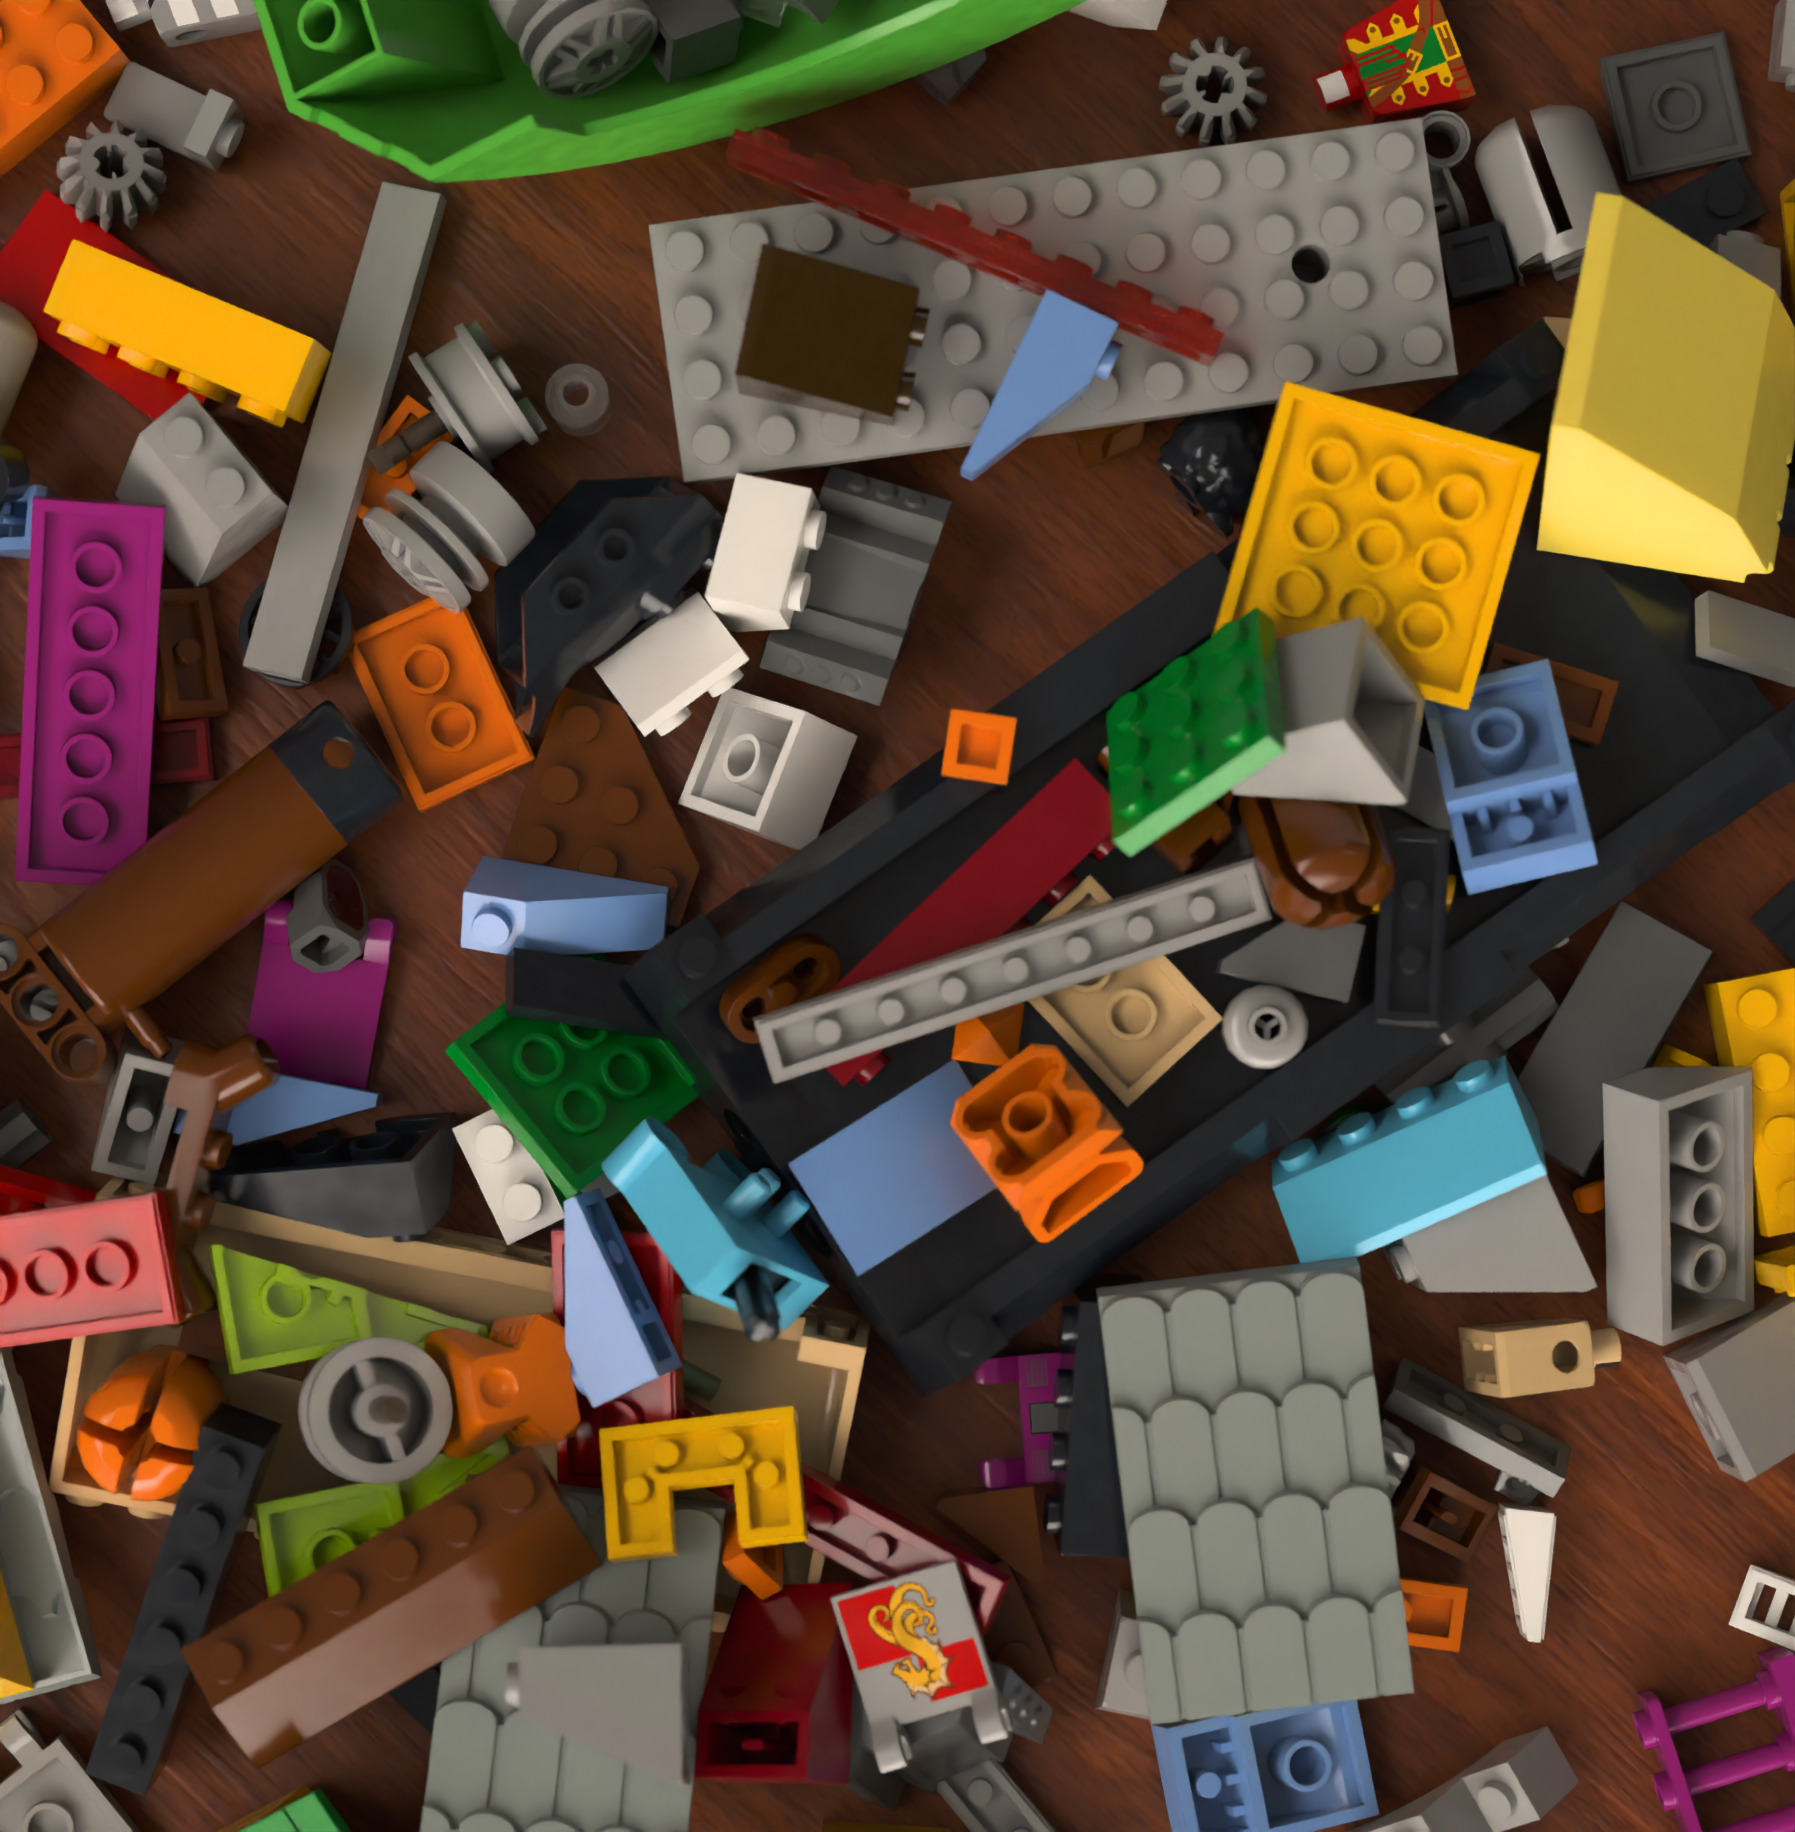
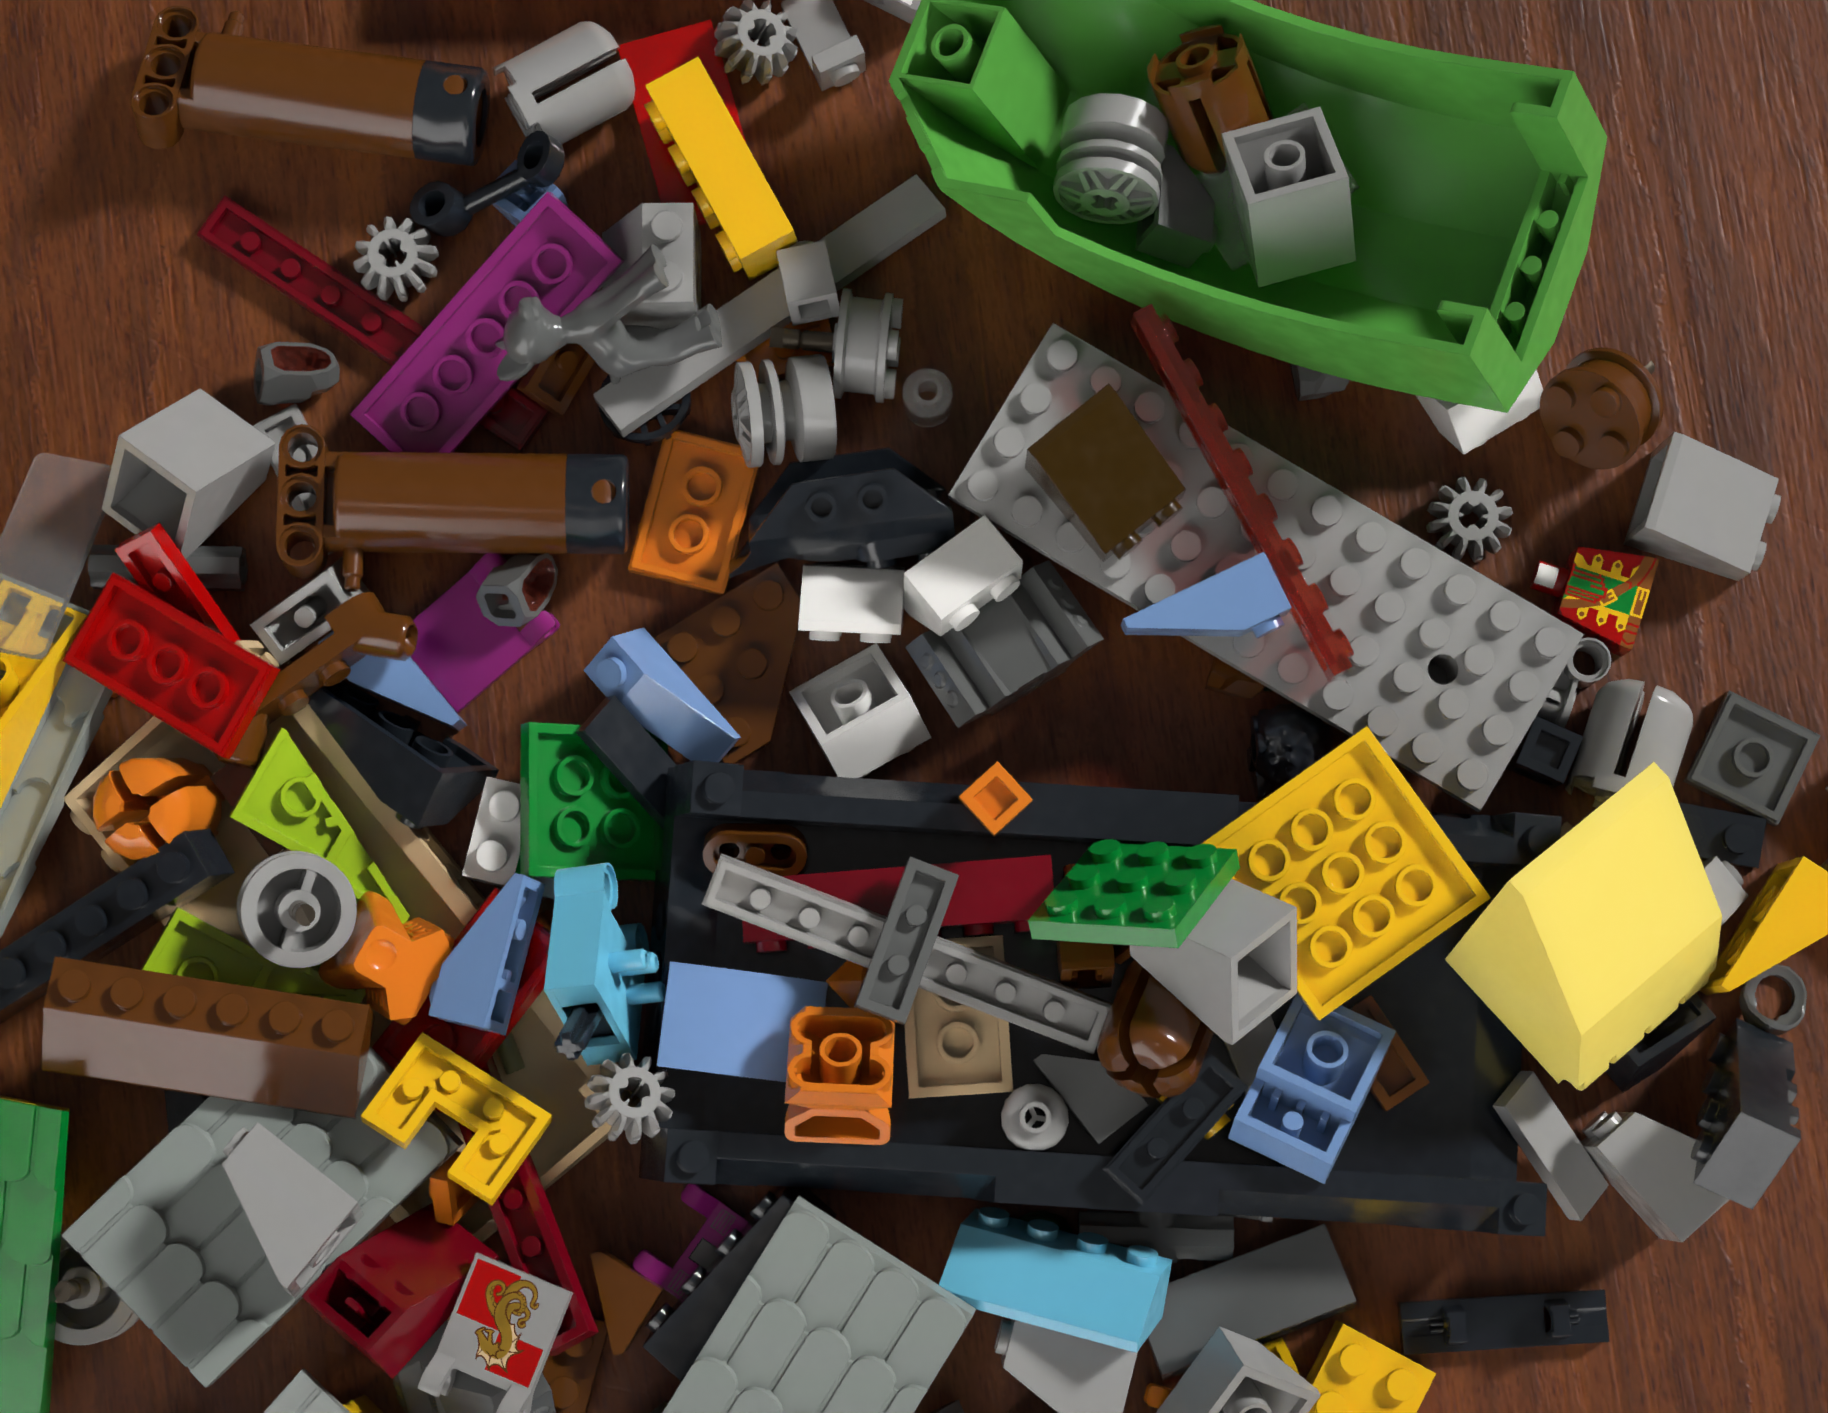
camera: 40 degrees right, 5 degrees down
(192, 592) = (596, 325): none -> dark grey animal
(367, 378) = (808, 282): none -> light grey brick
(852, 1303) = (640, 1082): none -> light grey gear
(1004, 956) = (906, 941): none -> dark grey hinge

